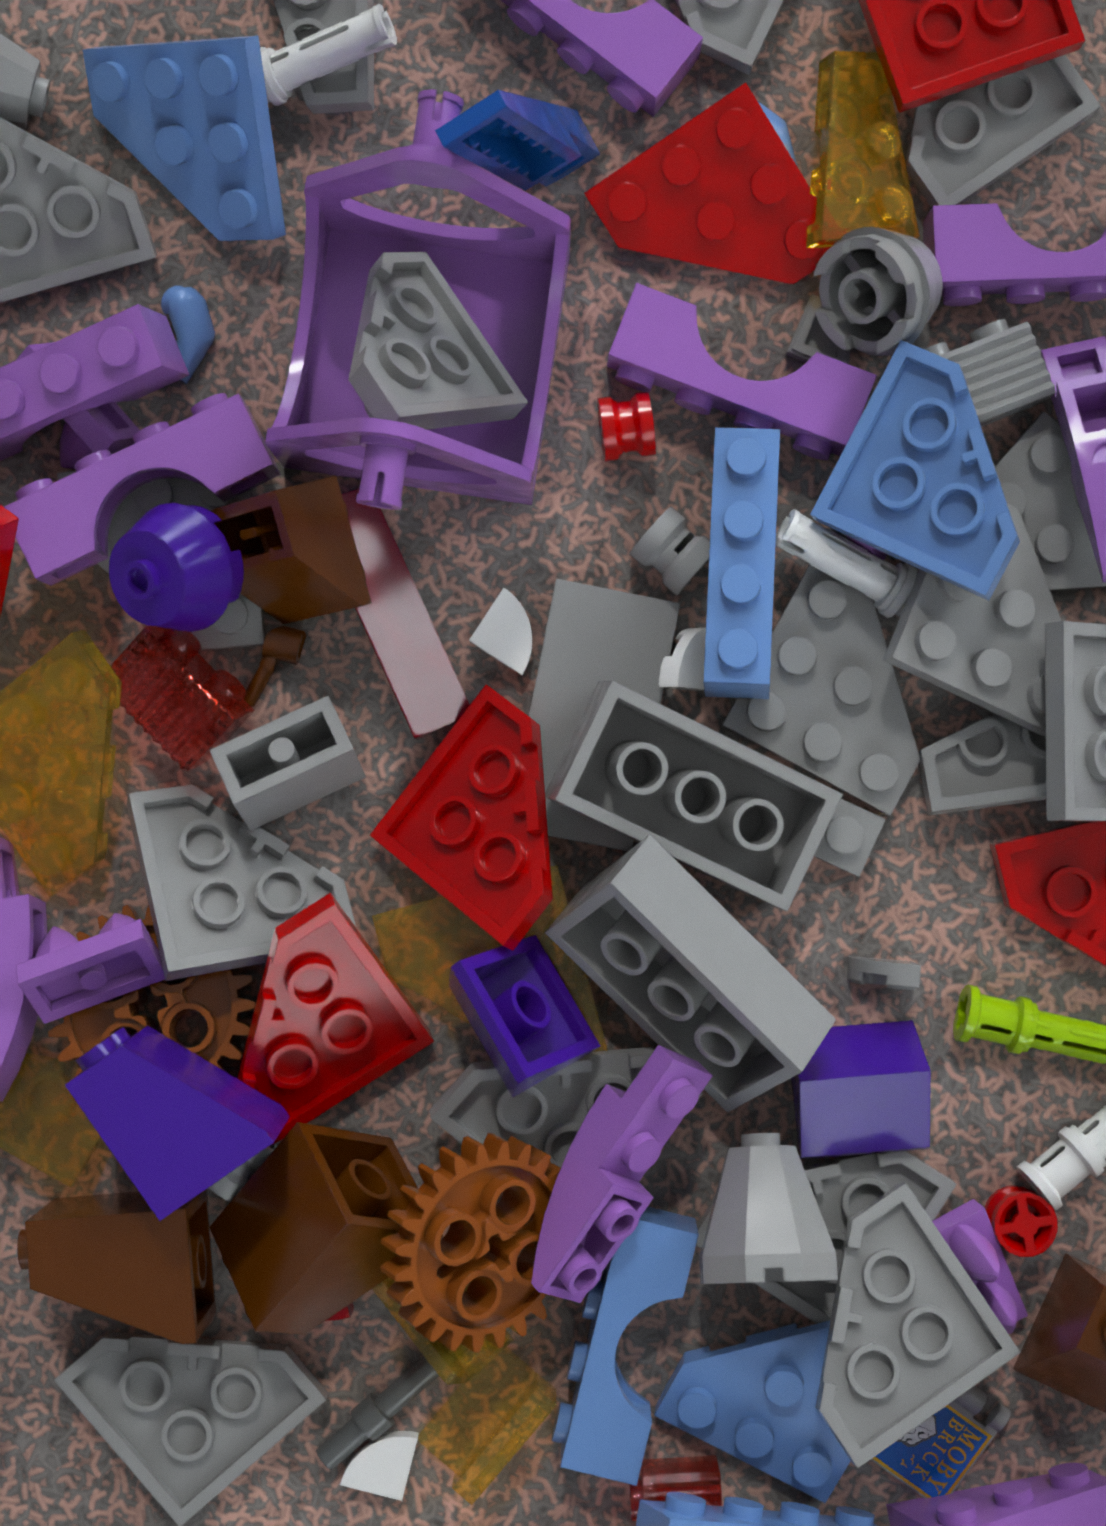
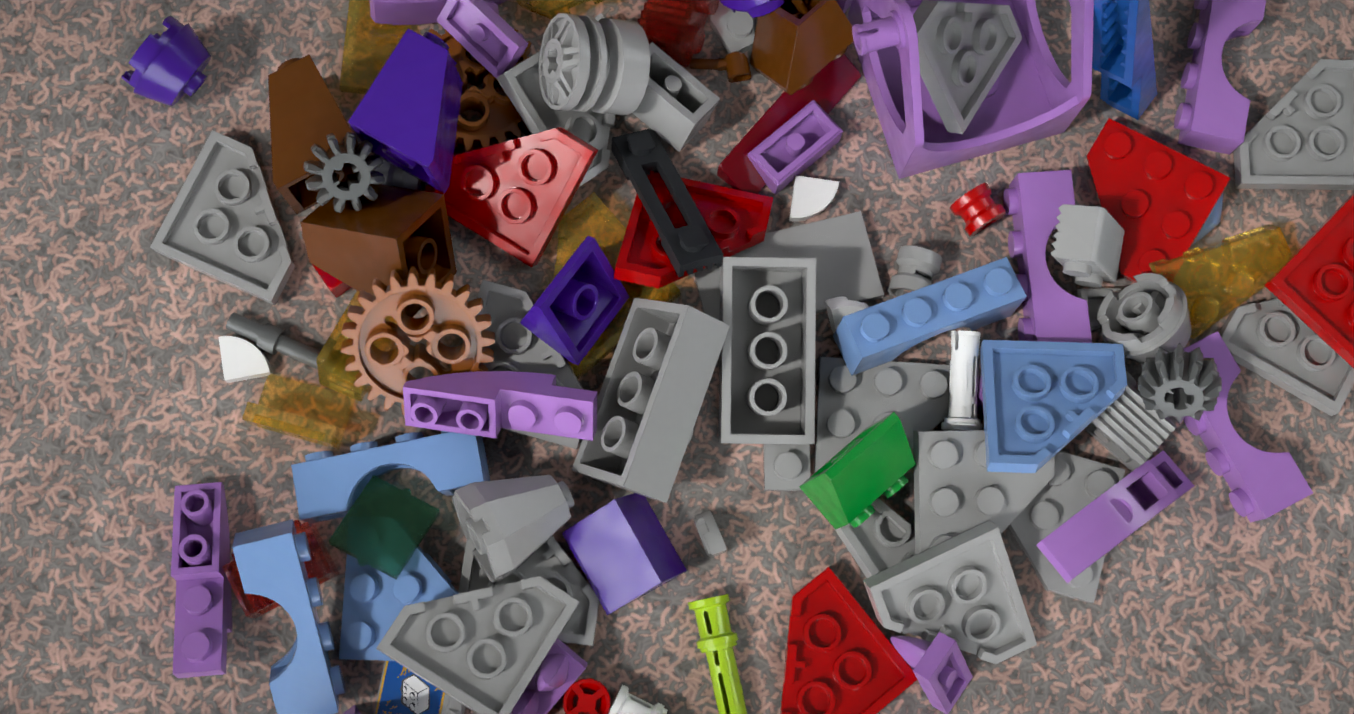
camera: 65 degrees right, 10 degrees down
(201, 1268) = (333, 160): none -> dark grey gear
(212, 846) = (594, 64): none -> light grey wheel
(430, 622) = (795, 146): none -> medium lavender slope
(517, 834) = (685, 246): none -> black container
(692, 1380) = (384, 527): none -> clear green piece
(749, 316) = (1088, 244): none -> light grey brick
(907, 755) = (861, 473): none -> green slope
(987, 295) = (1179, 383): none -> dark grey gear

